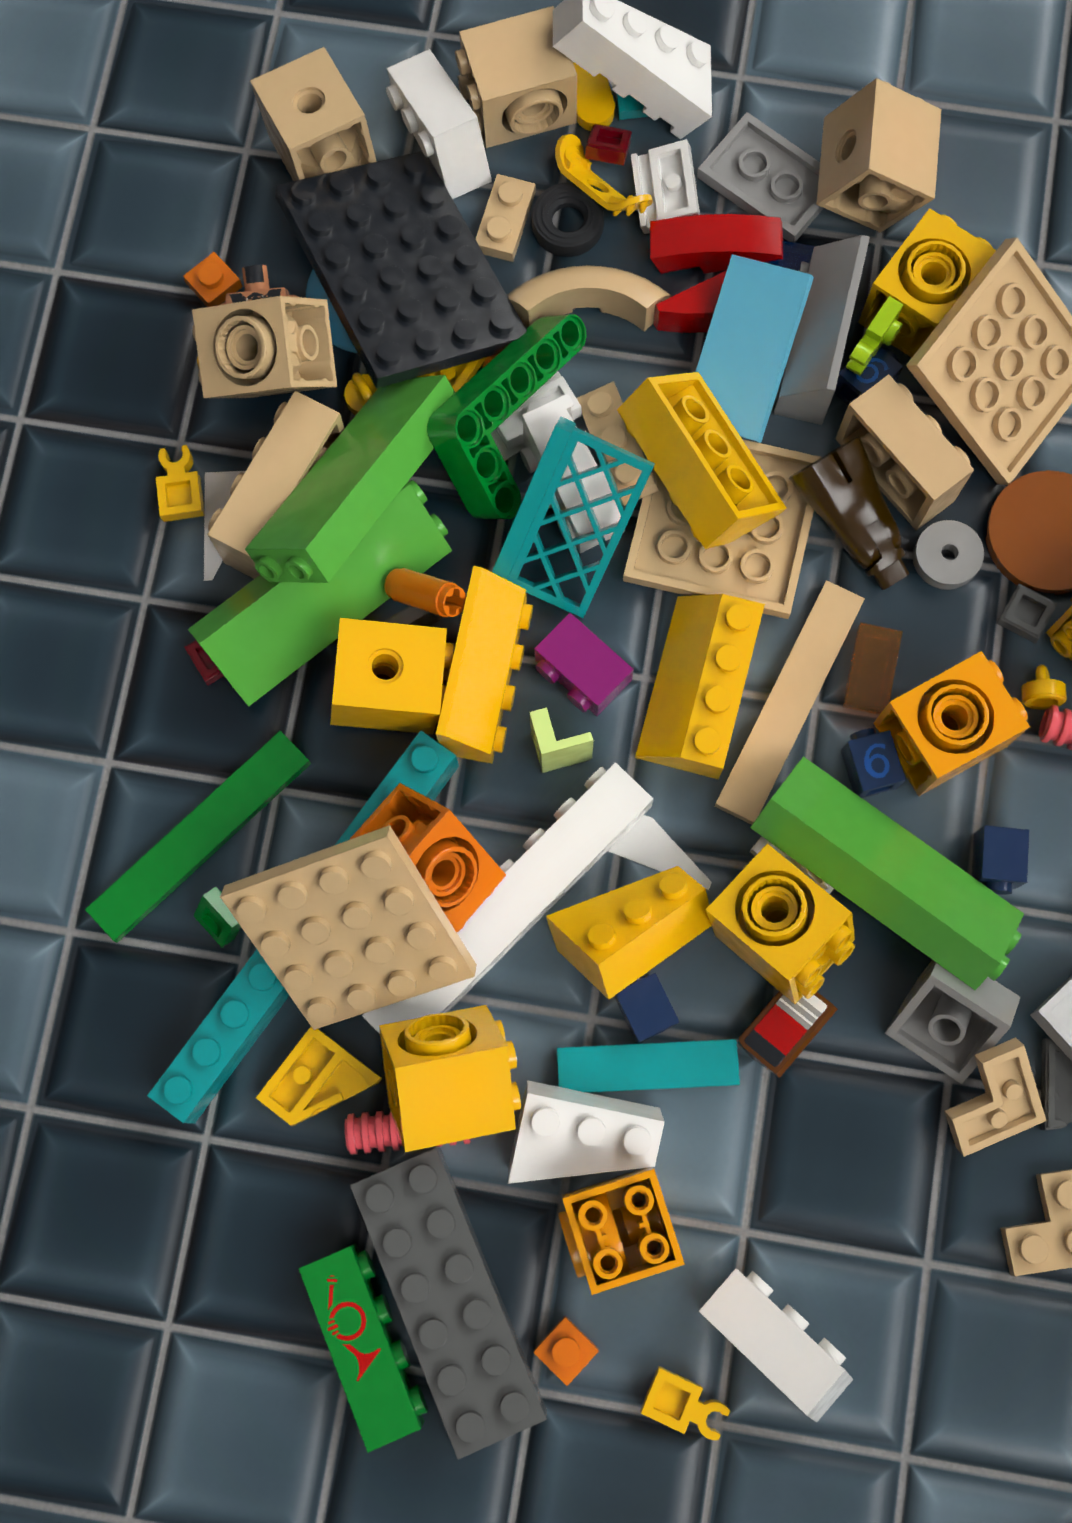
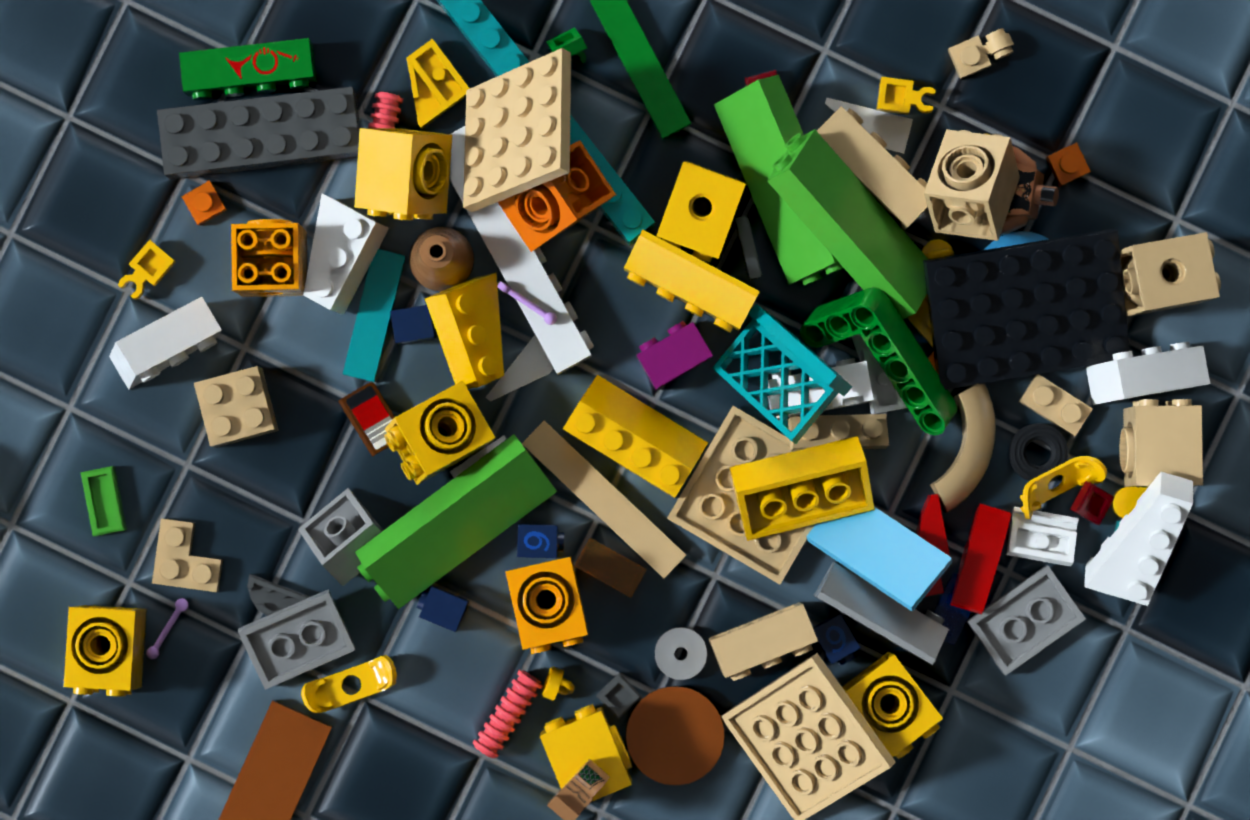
camera: 100 degrees right, 10 degrees up
(105, 422) = (972, 55): none -> tan plate
(425, 592) = (754, 252): orange piece -> none
(549, 1020) = (448, 269): none -> medium nougat cone
(560, 753) = (619, 309): yellowish green panel -> none
(584, 826) = (549, 317): none -> lavender hinge
(832, 1216) = (236, 406): none -> tan brick
(851, 504) = (738, 589): dark brown piece -> none
(879, 156) = (1007, 702): tan brick -> none
(881, 330) = (859, 654): lime plate -> none
(1005, 1108) = (270, 548): tan plate -> none
(1017, 1366) = (103, 501): none -> bright green tile

